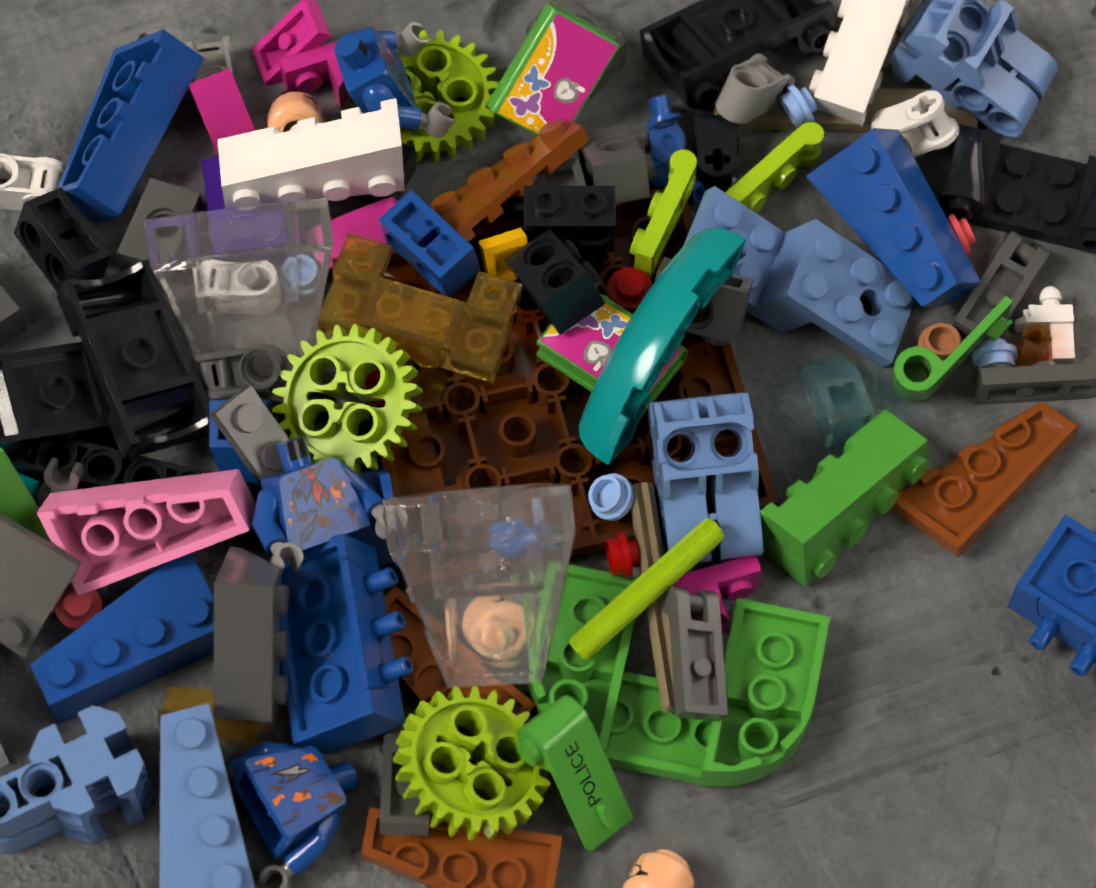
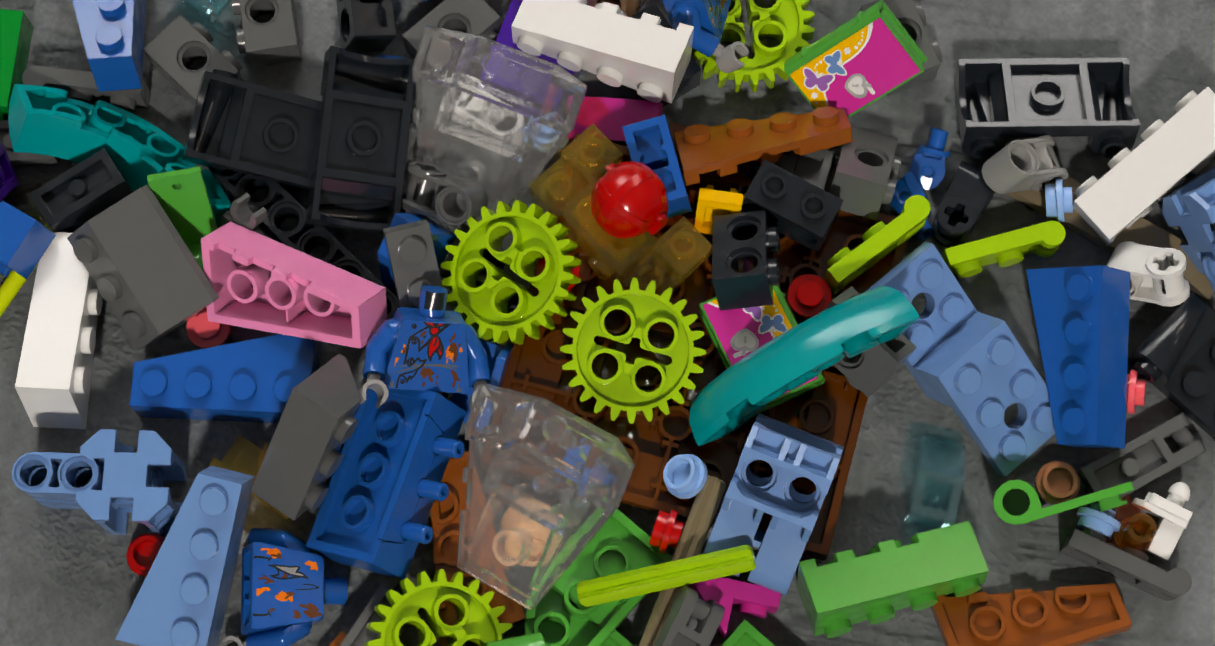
camera: 30 degrees right, 10 degrees up
(140, 841) = (143, 552): none -> red plate
(424, 276) = (629, 200): none -> red cap
(489, 371) = (621, 390): none -> lime gear

